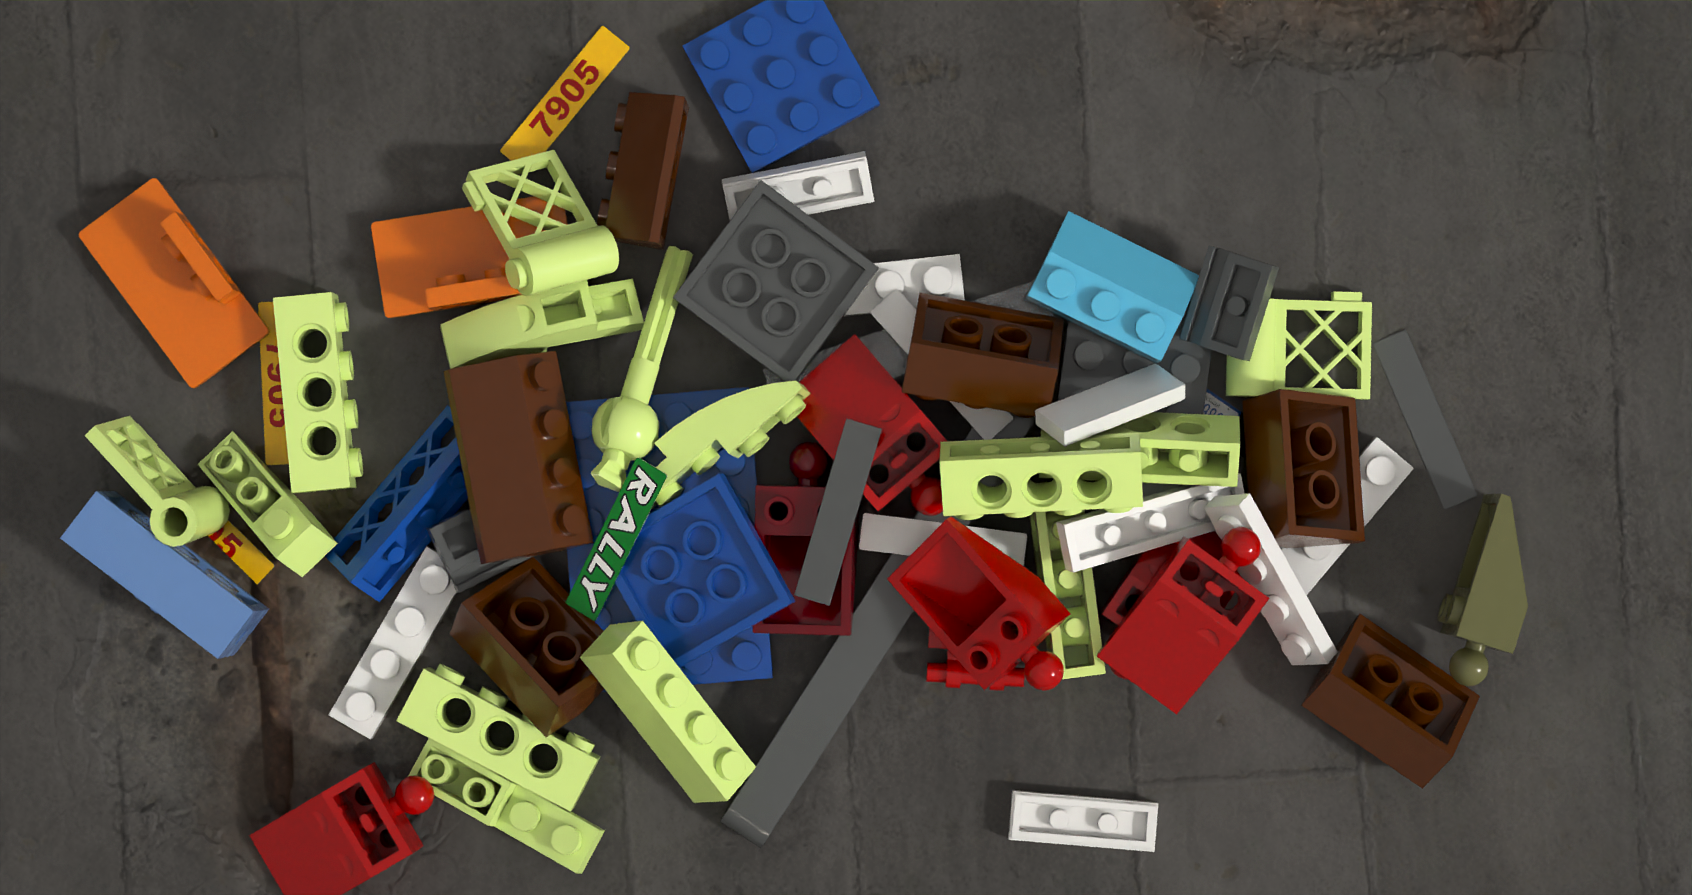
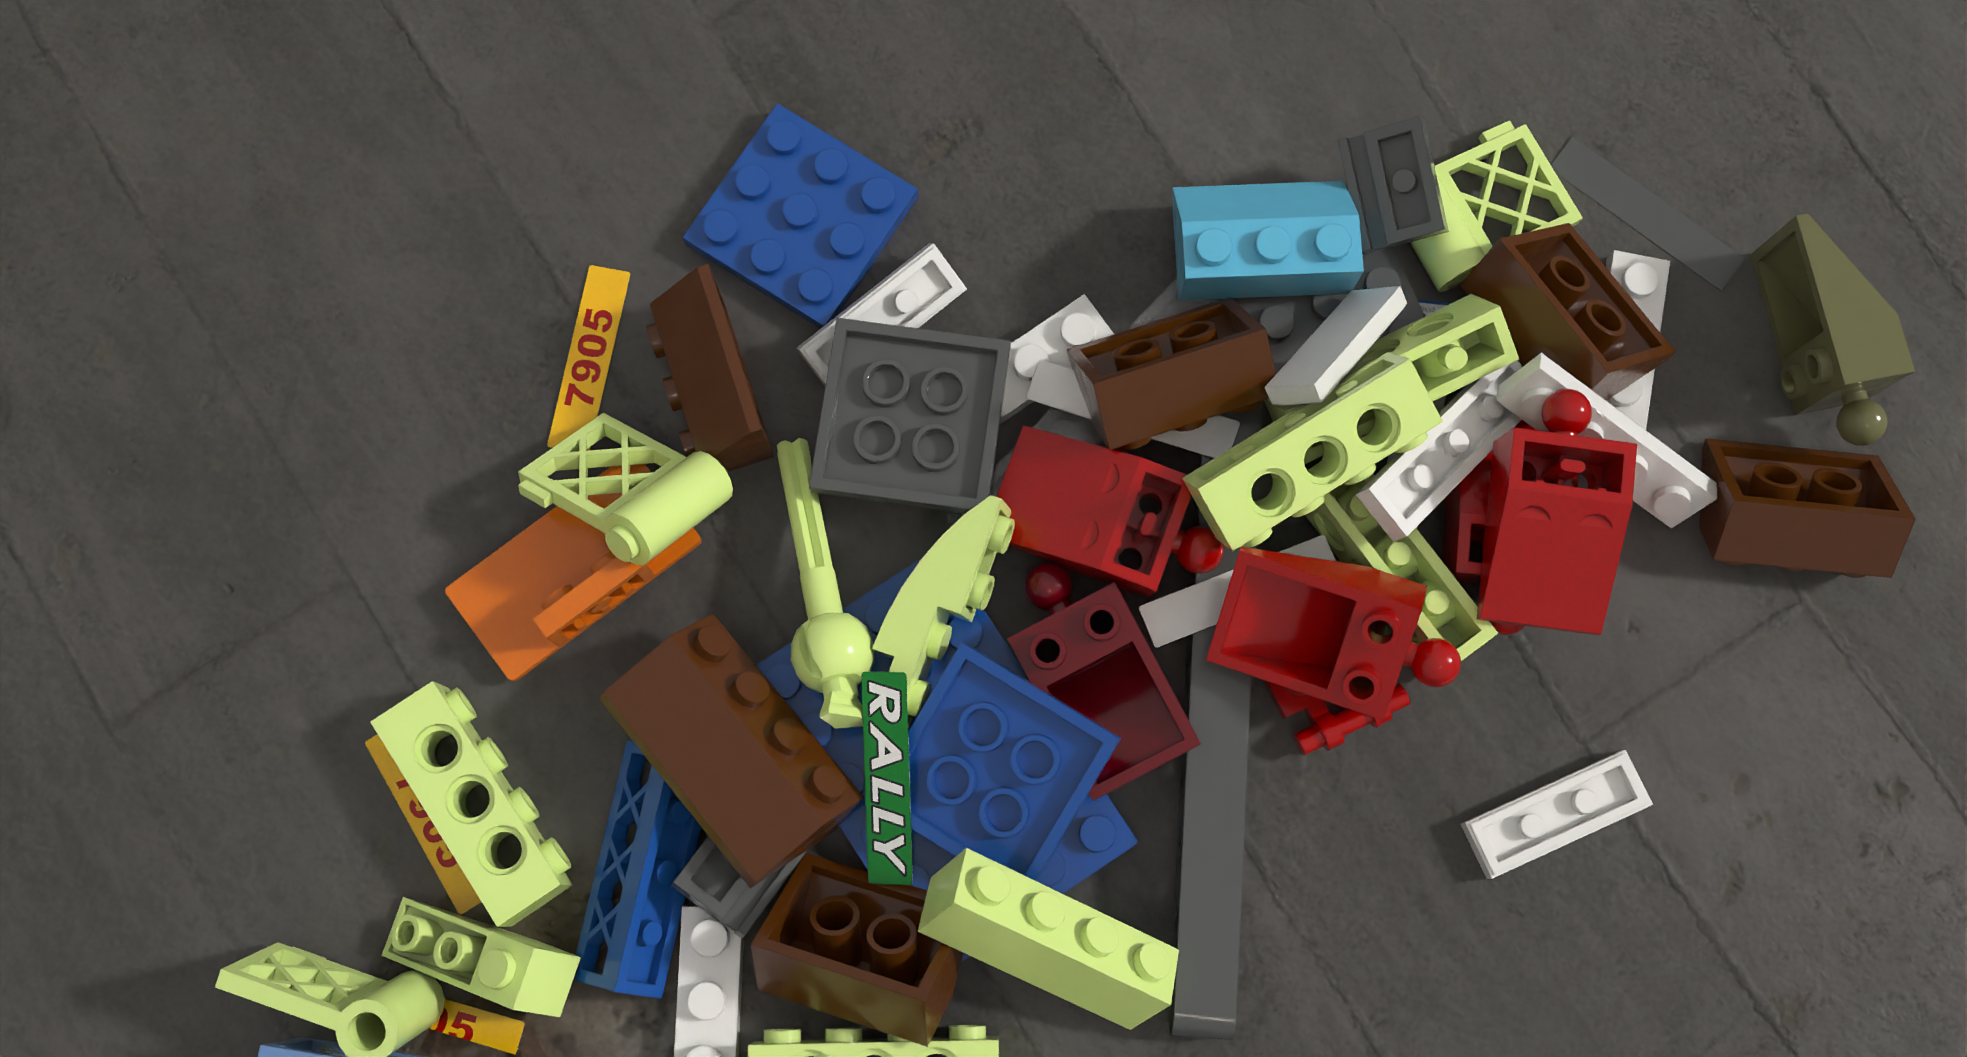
camera: 30 degrees left, 10 degrees down
(174, 283) = (258, 770): orange bracket -> none
(542, 321) = (681, 589): yellowish green slope -> none
(838, 512) = (1113, 615): dark grey sticker -> none

